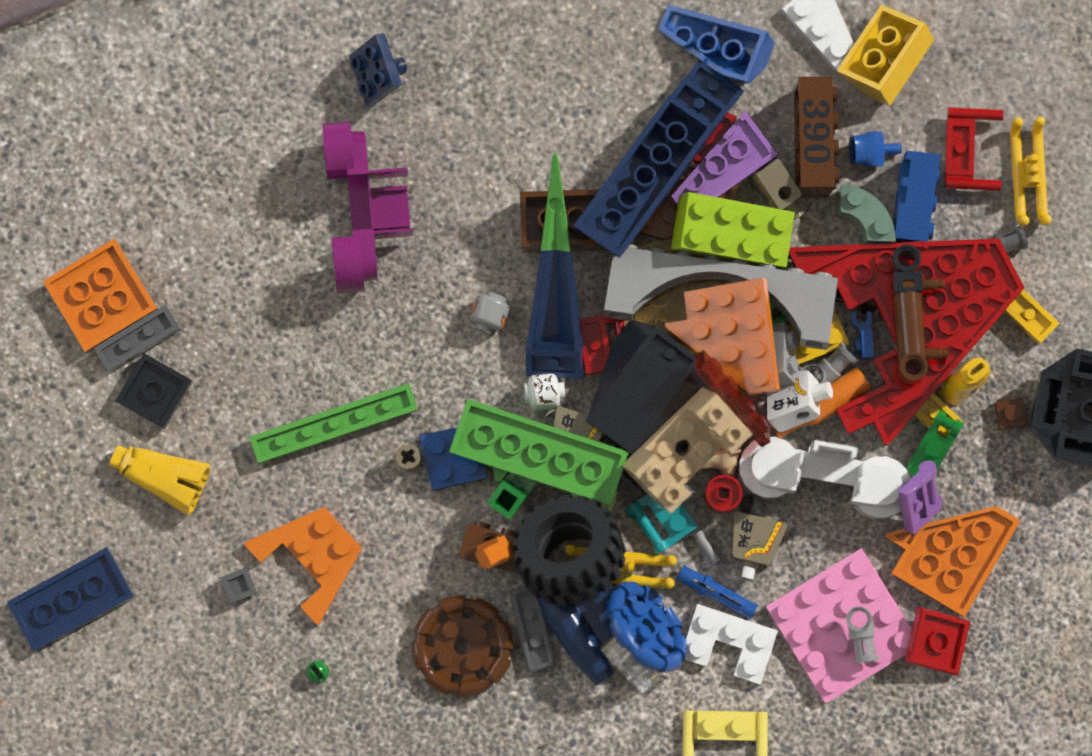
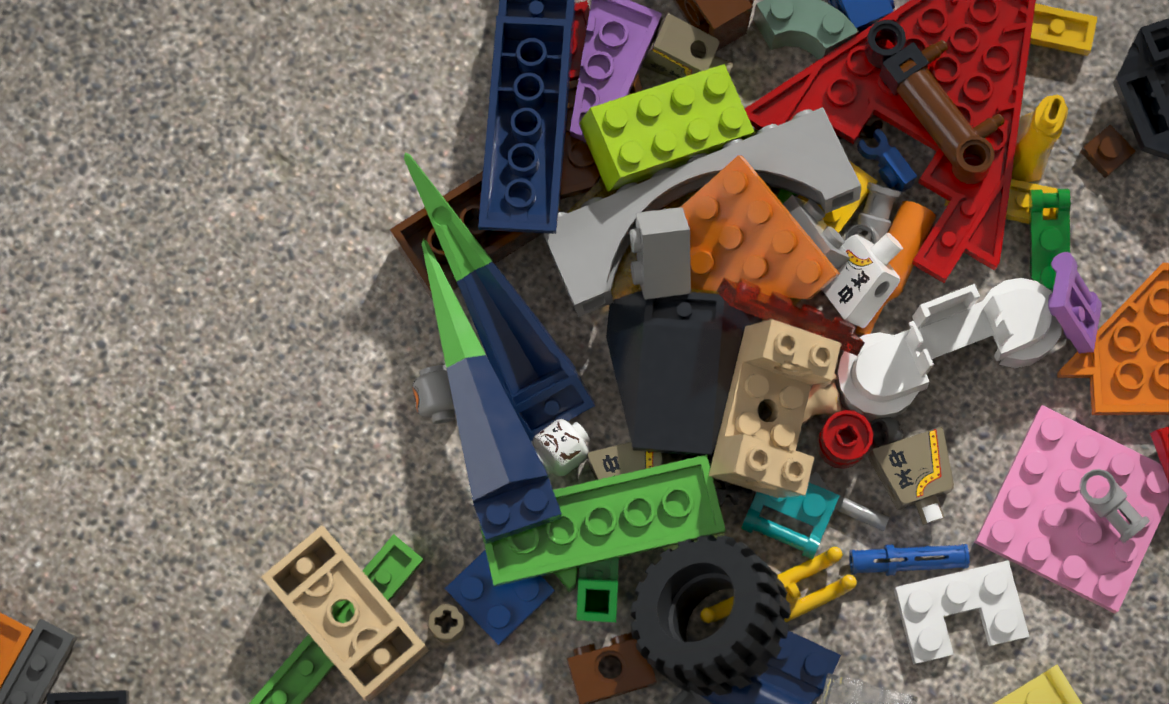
camera: 30 degrees left, 5 degrees down
(356, 443) = (368, 648): none -> tan plate
(370, 207) = (228, 358): magenta piece -> none
(376, 69) = (132, 190): dark blue plate -> none
(494, 552) = (622, 672): orange piece -> none
(498, 382) = (501, 464): none -> dark blue plate
(596, 342) = (586, 353): red plate -> none
(645, 627) = (856, 652): blue plate -> none
(676, 311) = (662, 253): none -> light grey brick

